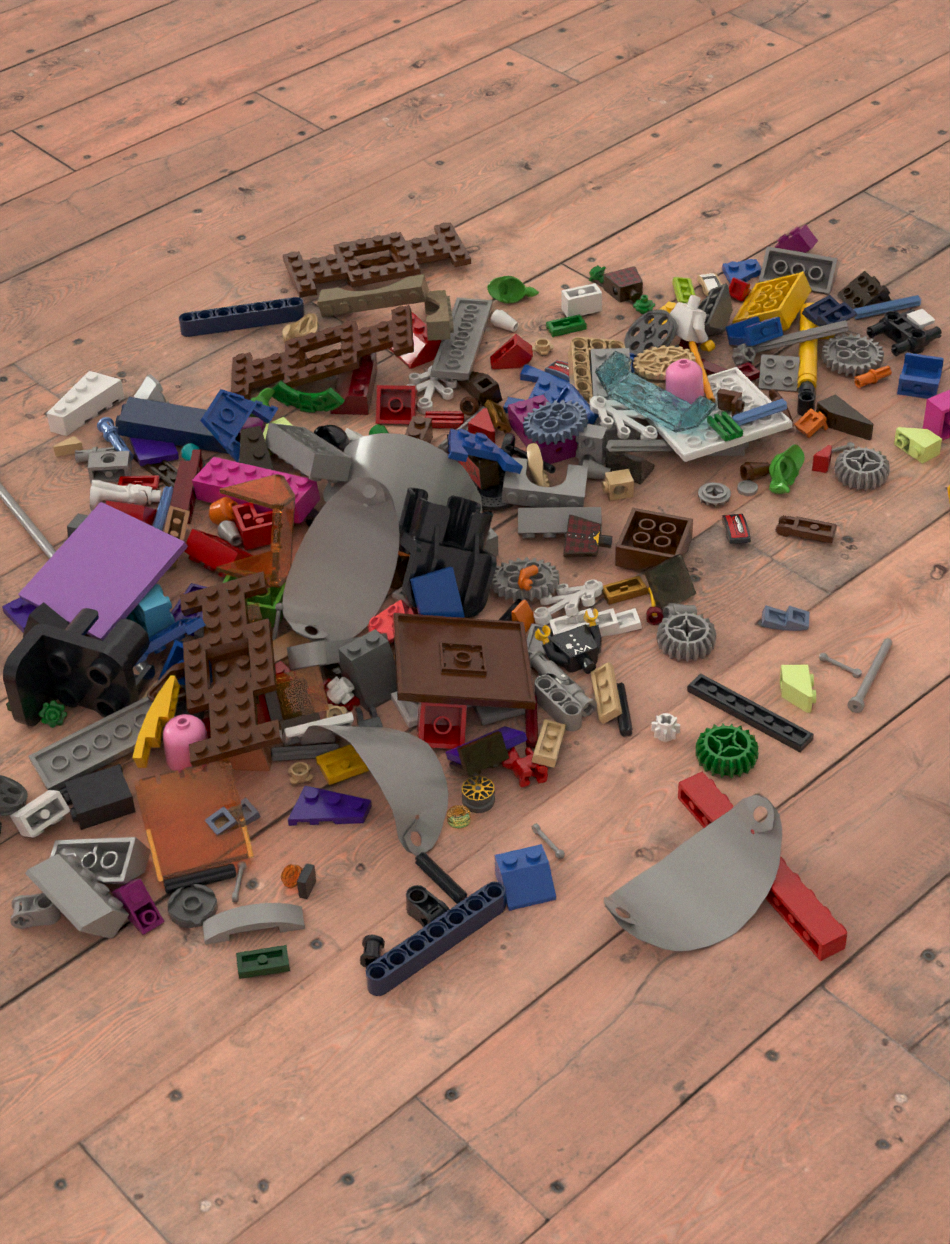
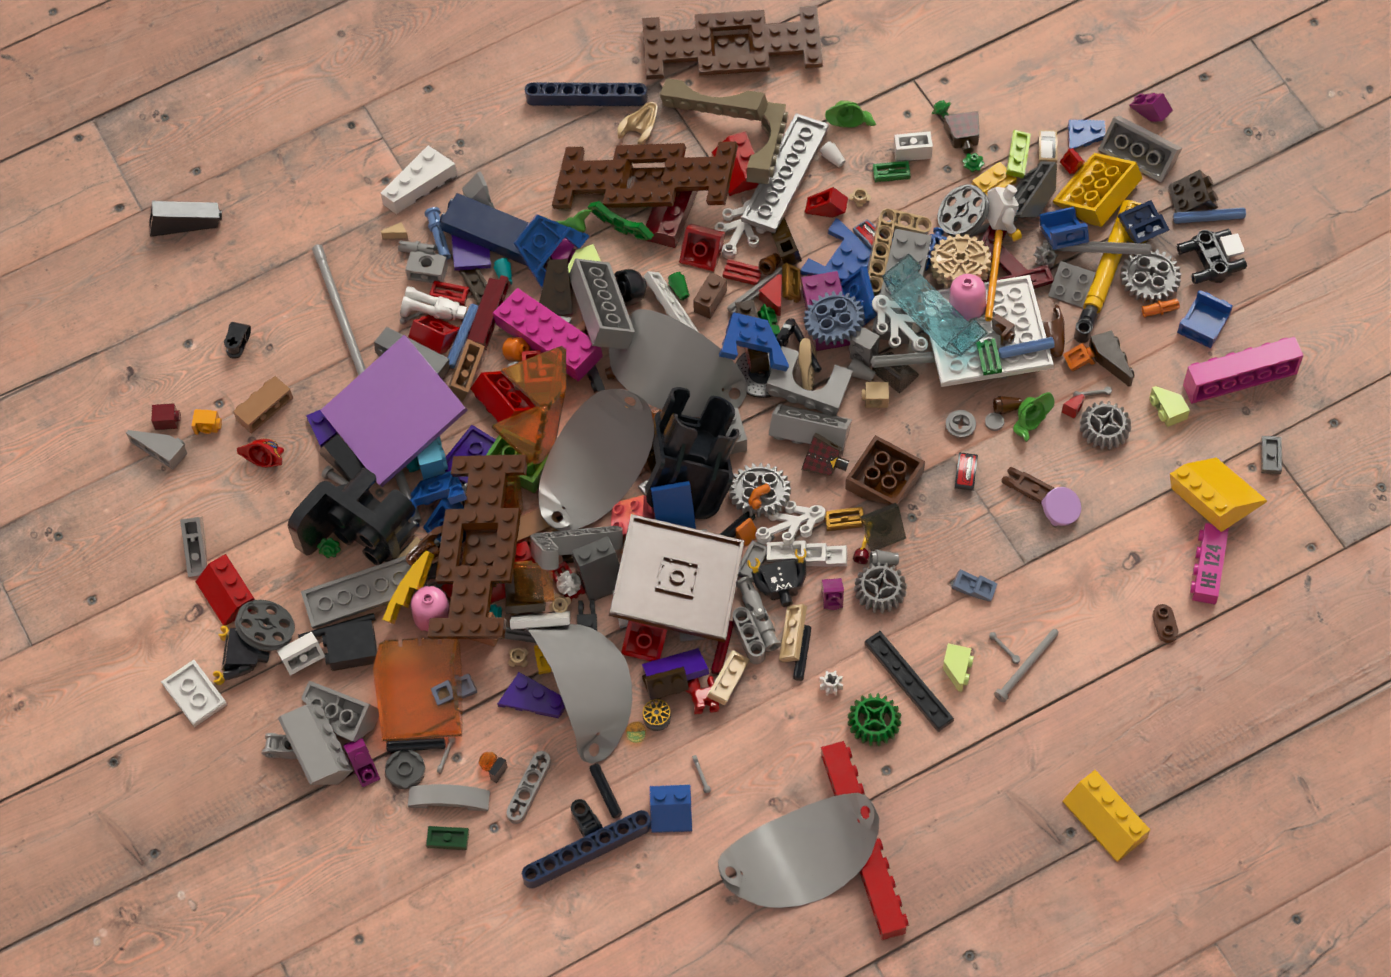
camera: 15 degrees right, 20 degrees up
(279, 607) = (527, 509): light grey hinge -> none
(350, 893) = (531, 788): none -> light grey beam
(372, 949) = (533, 848): black bush -> none
(637, 649) = (832, 593): none -> magenta slope
(848, 535) = (1061, 506): none -> lavender tile

